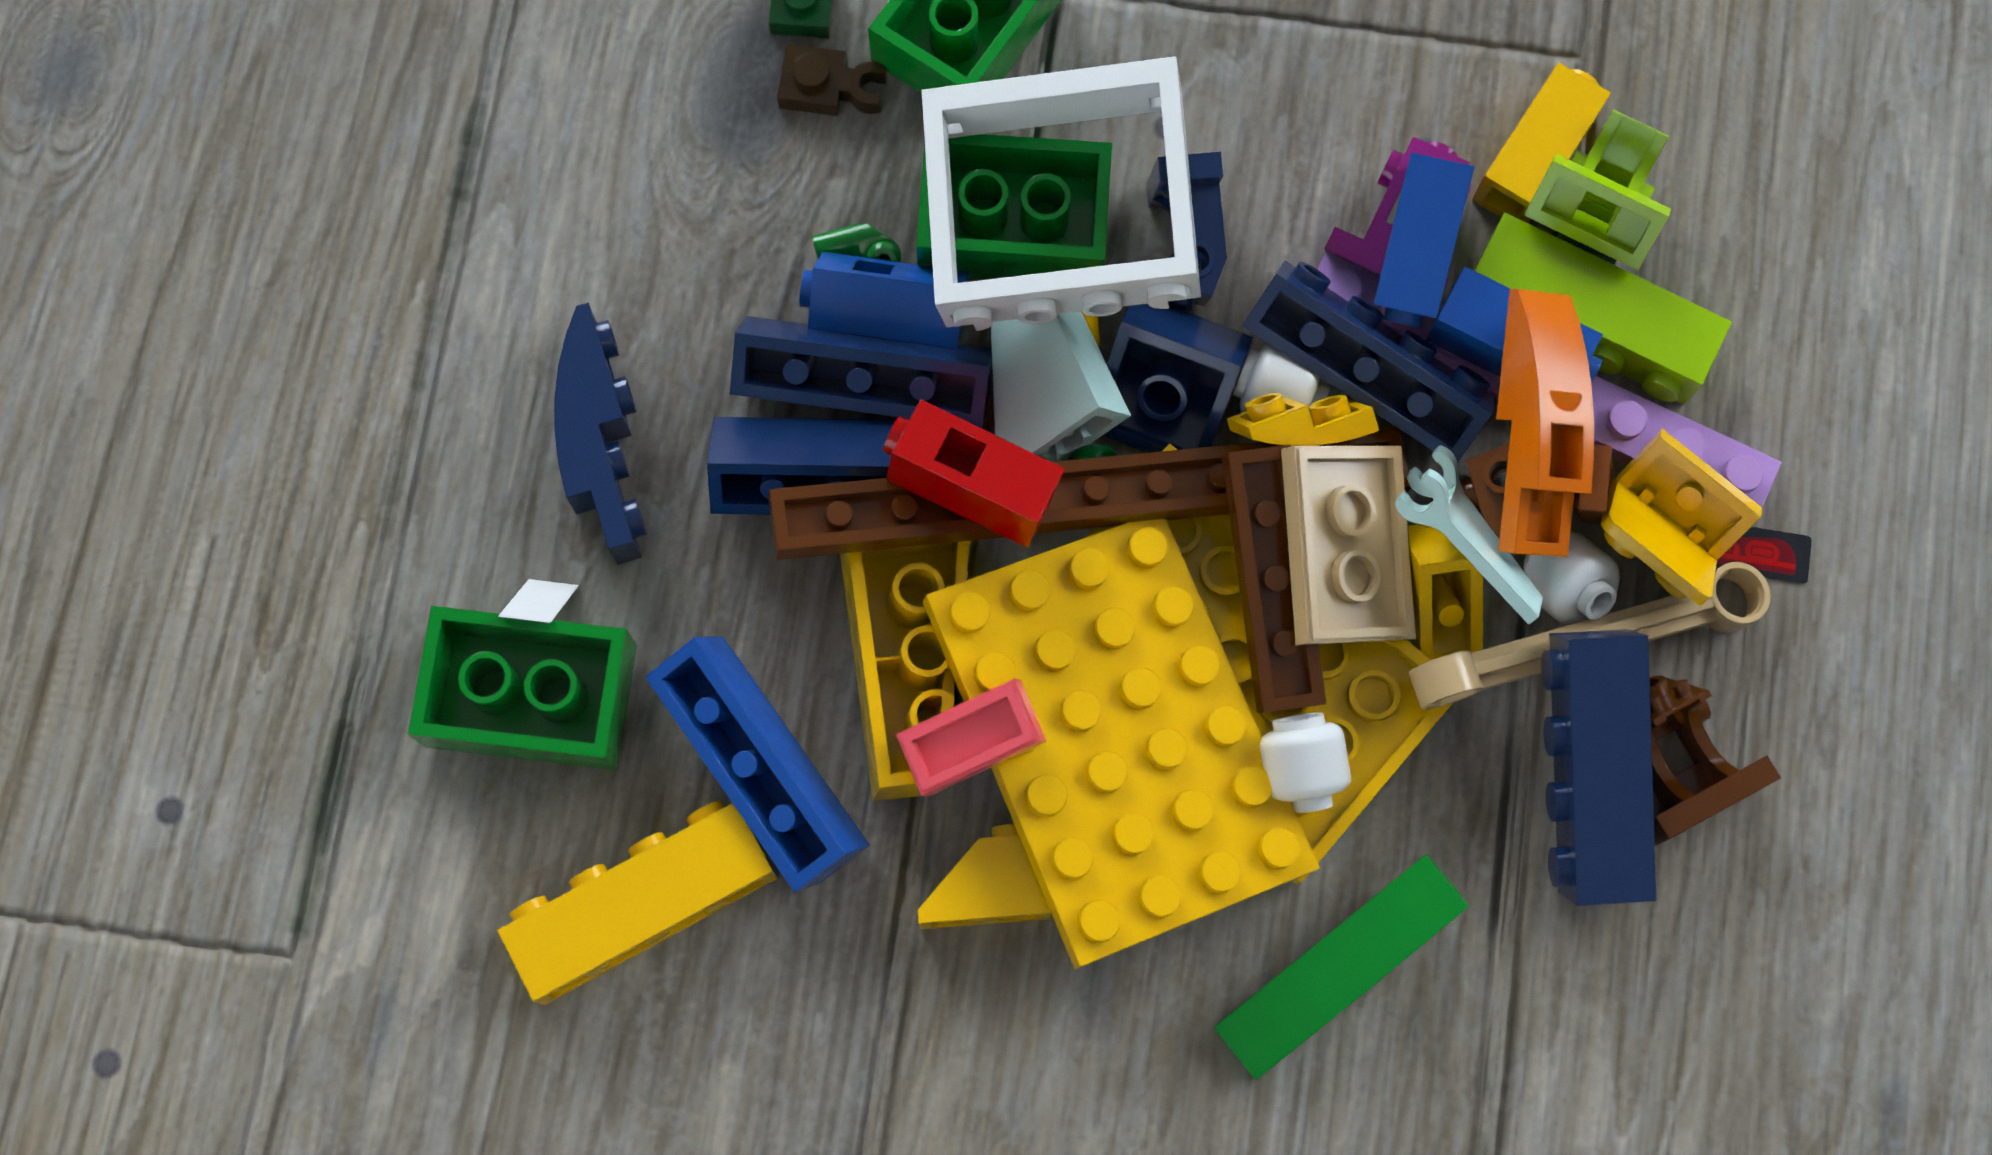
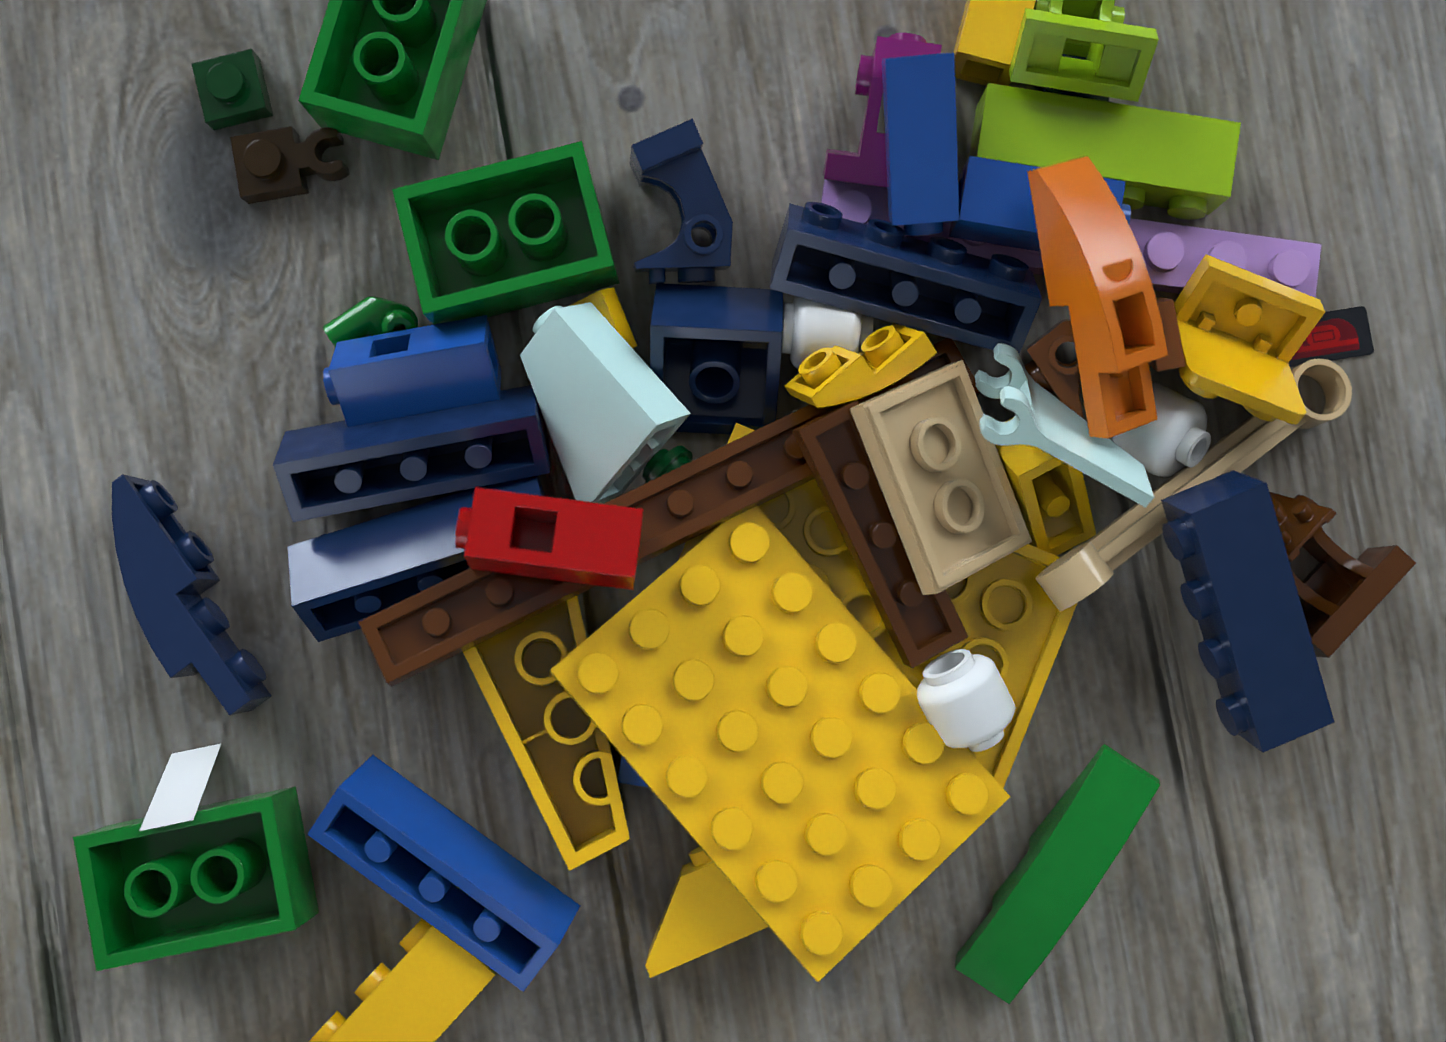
camera: 15 degrees left, 10 degrees up
(971, 737) = (641, 800): coral tile -> none
(1048, 101) = (499, 124): white window -> none

